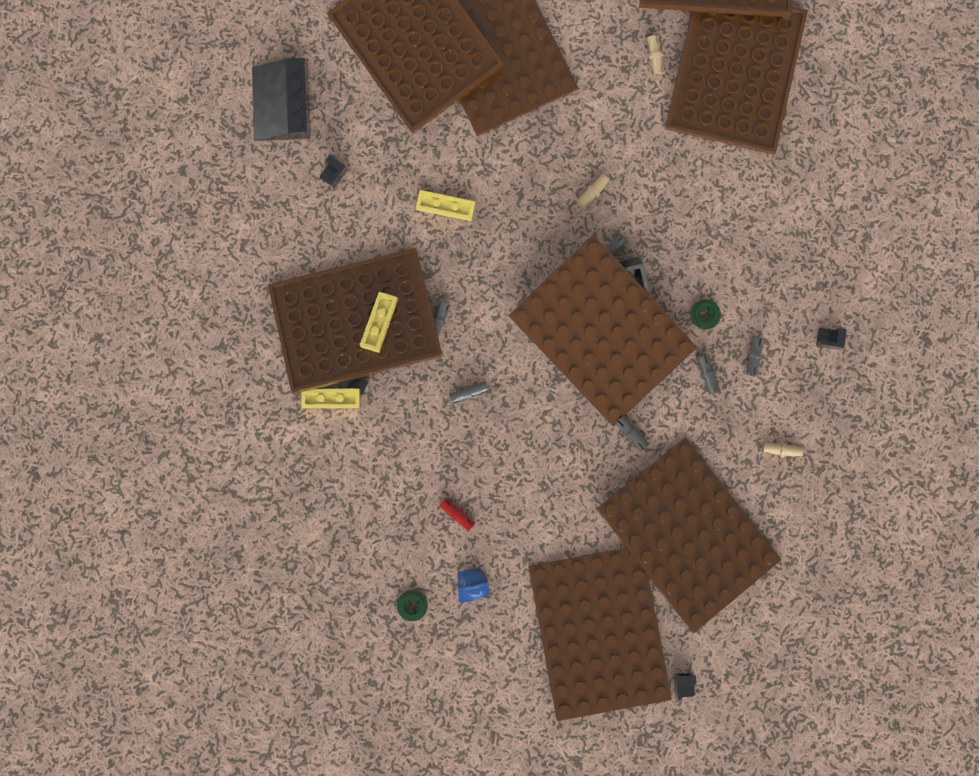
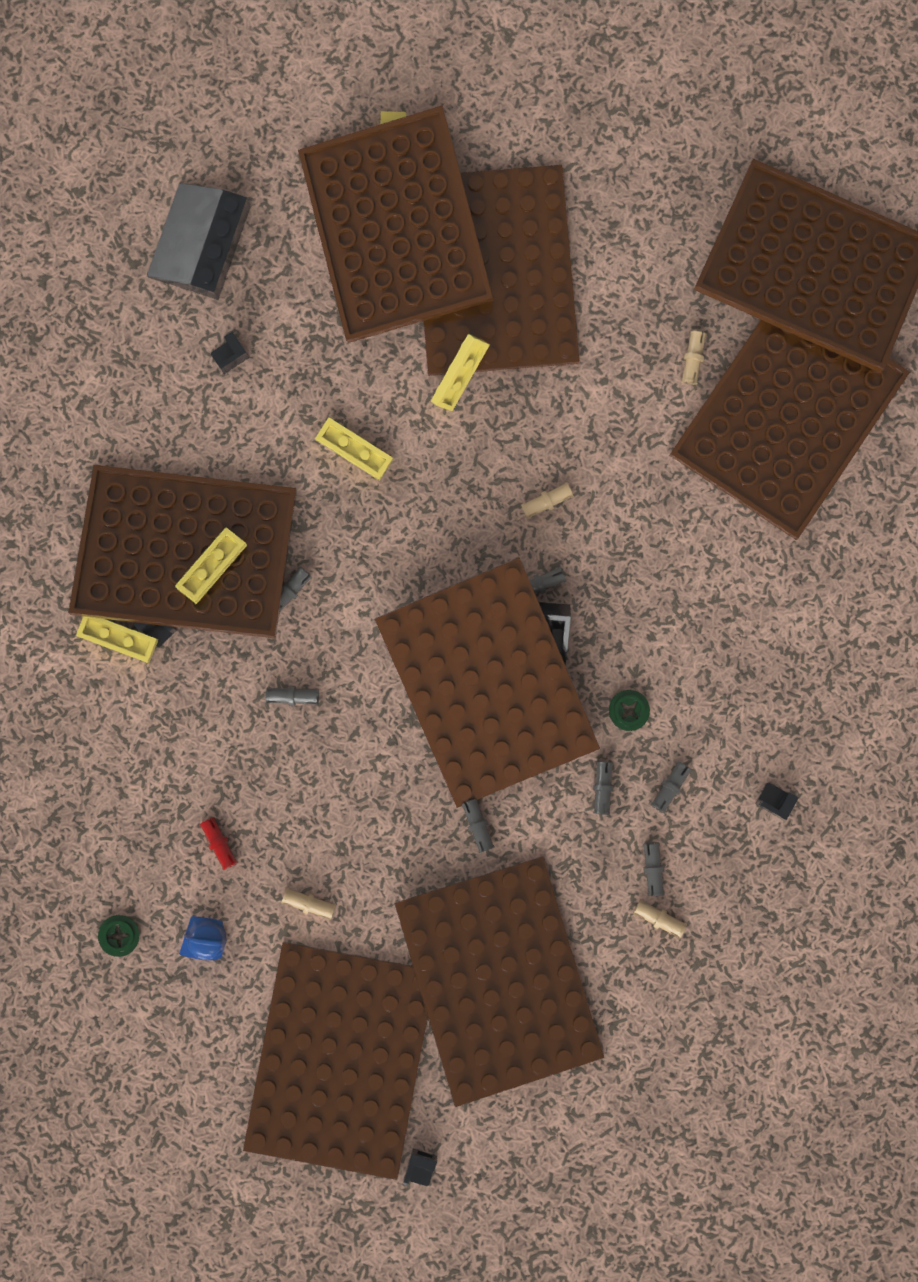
camera: 25 degrees right, 0 degrees up
(499, 124) = (460, 372): none -> light yellow plate
(536, 532) = (308, 903): none -> tan pin
(765, 417) = (653, 869): none -> dark grey pin

